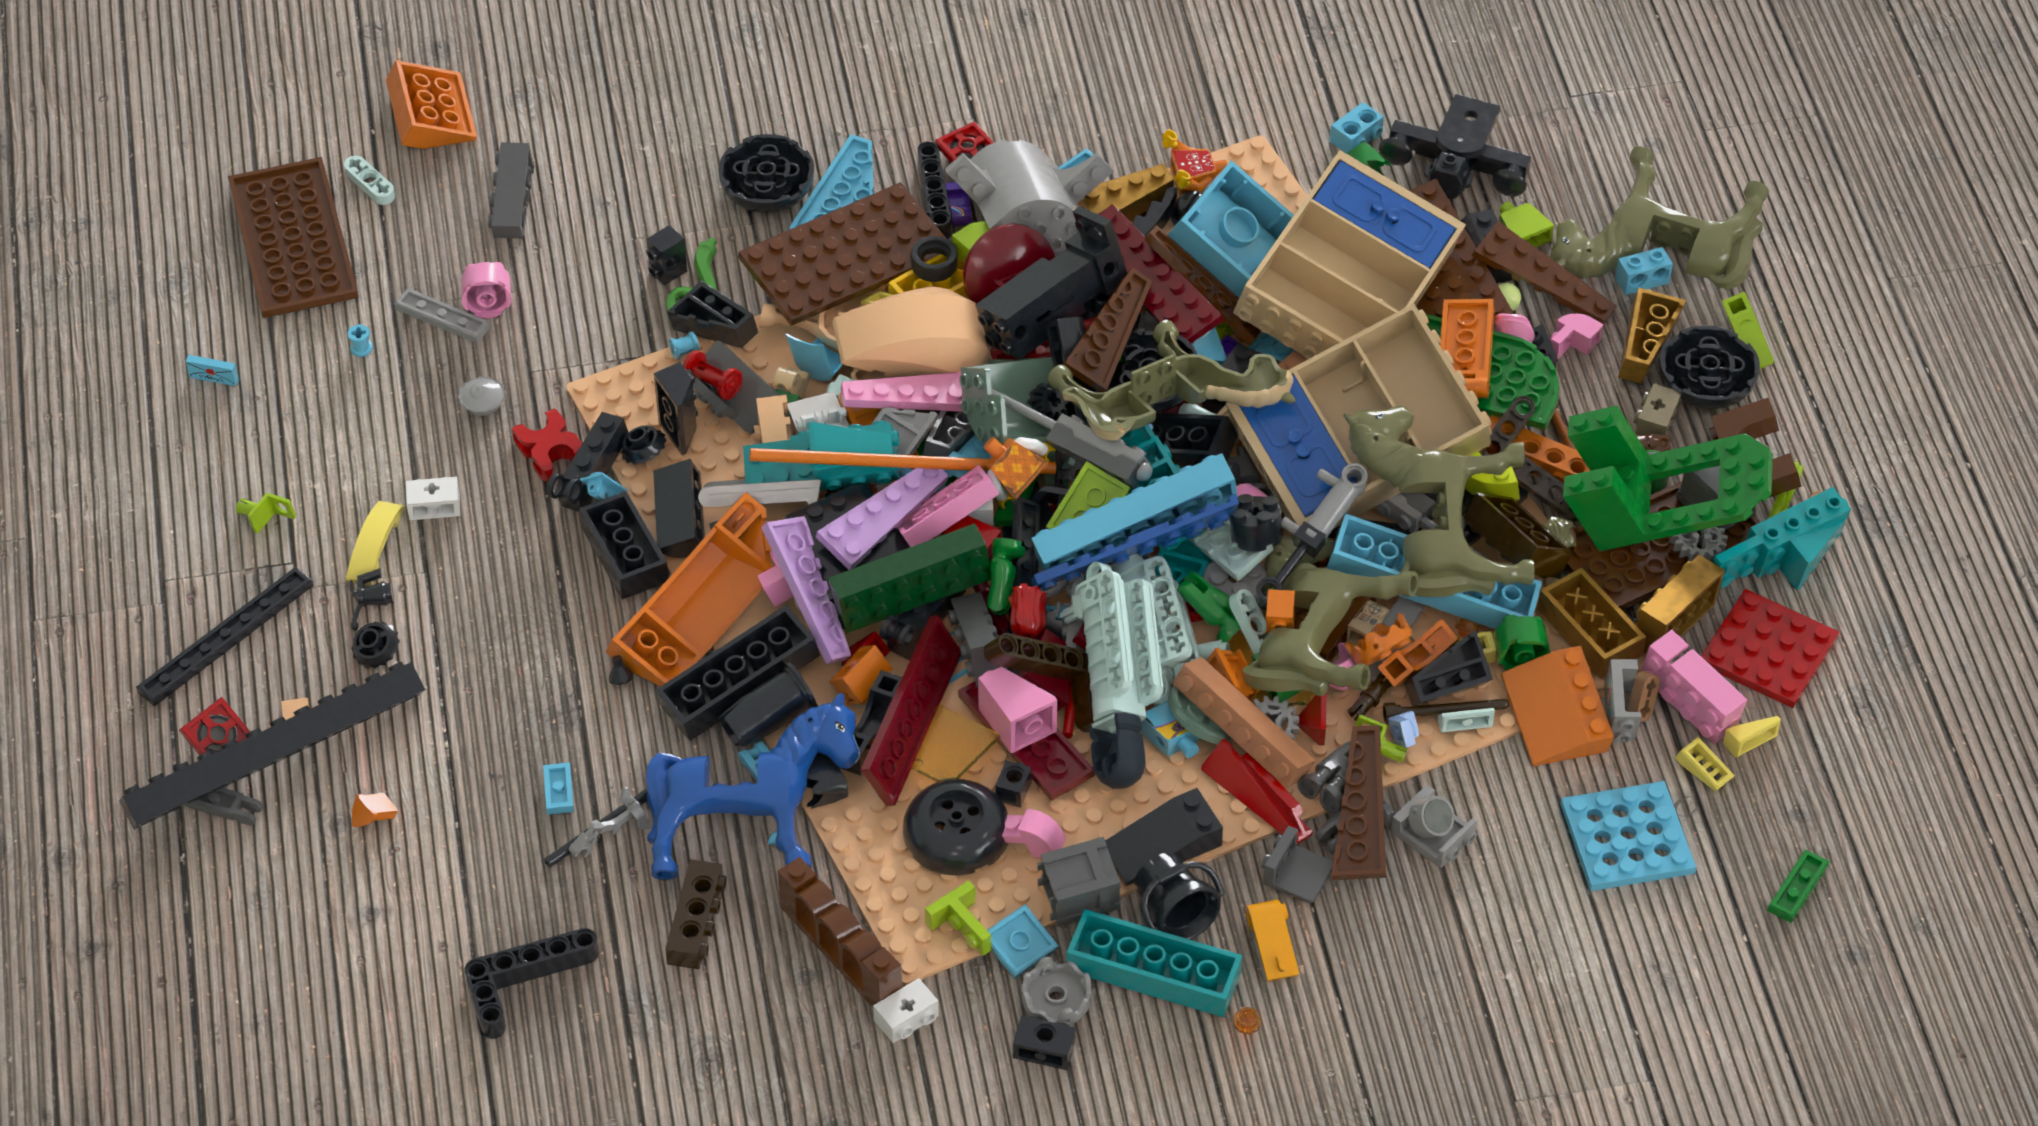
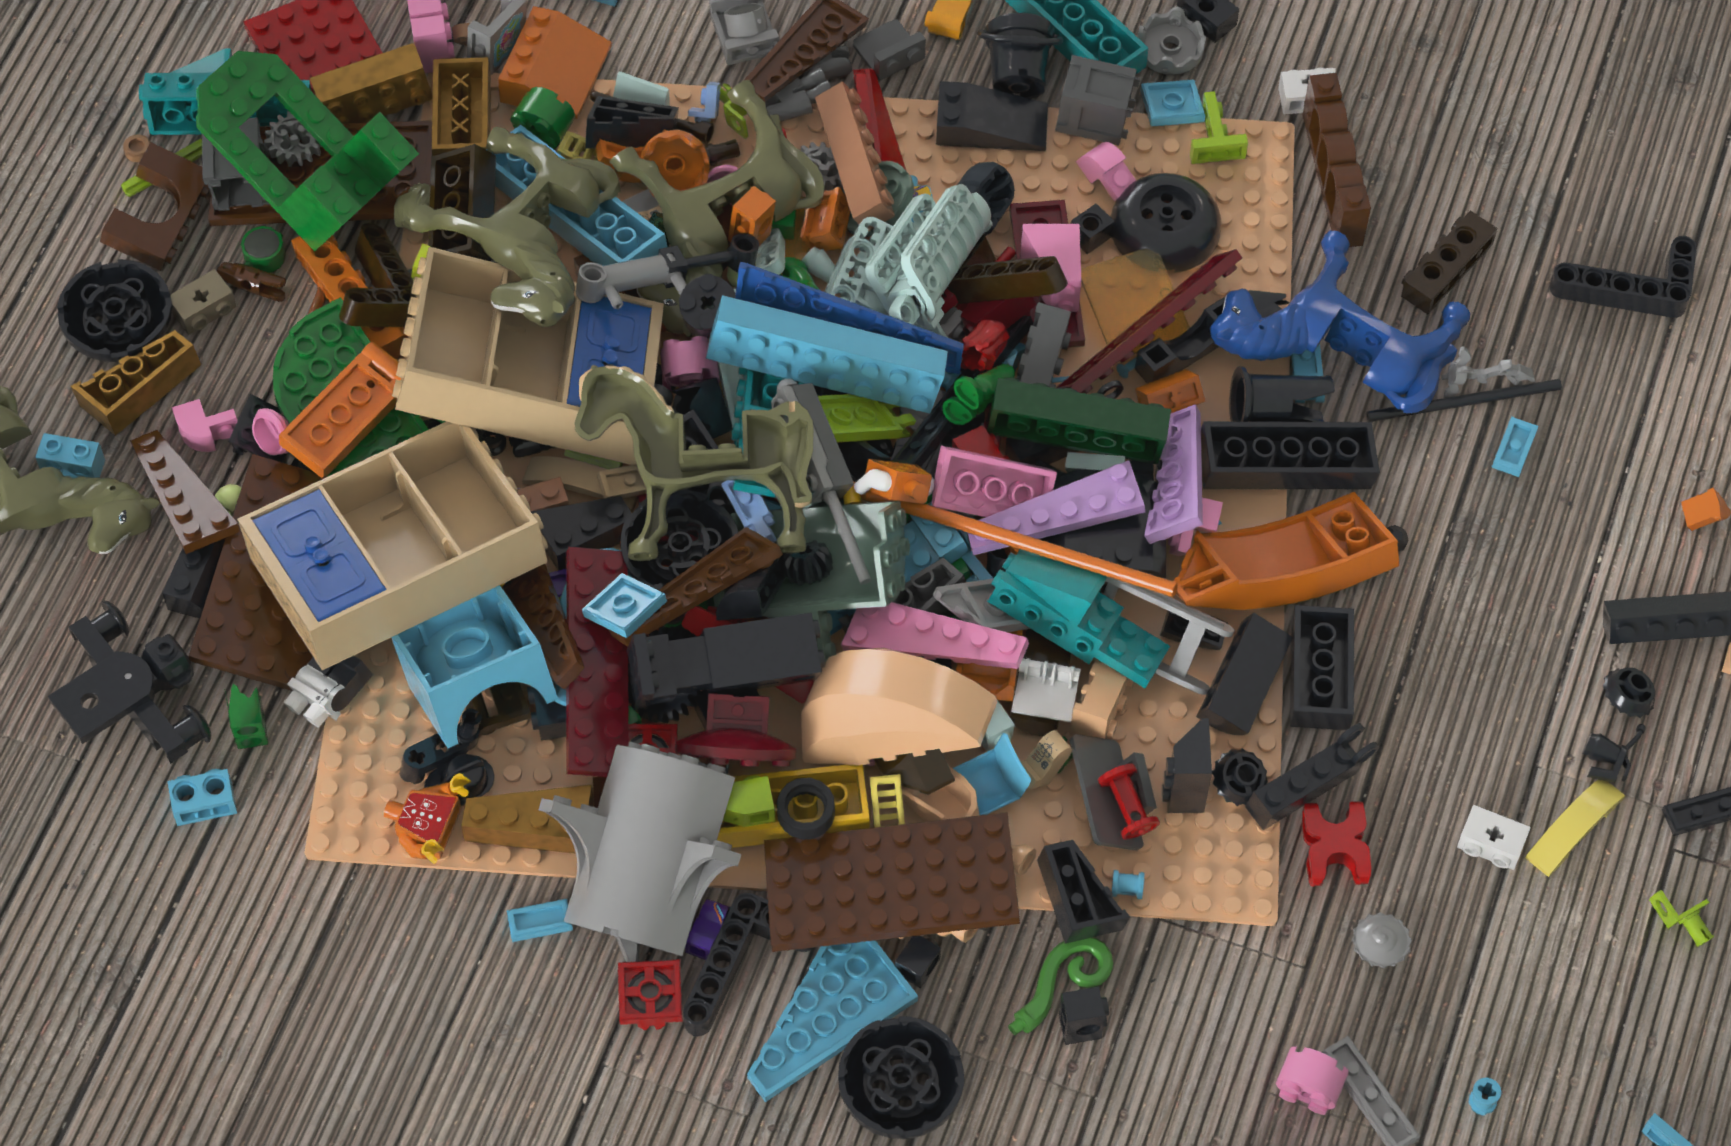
camera: 150 degrees left, 10 degrees up
(602, 486) = (1312, 737): medium azure hinge -> none
(1149, 291) = (624, 605): none -> medium azure tile
(1158, 213) = (536, 769): black slope -> none
(1527, 223) = (141, 576): lime torso -> none
(1747, 327) = (35, 340): lime slope -> none

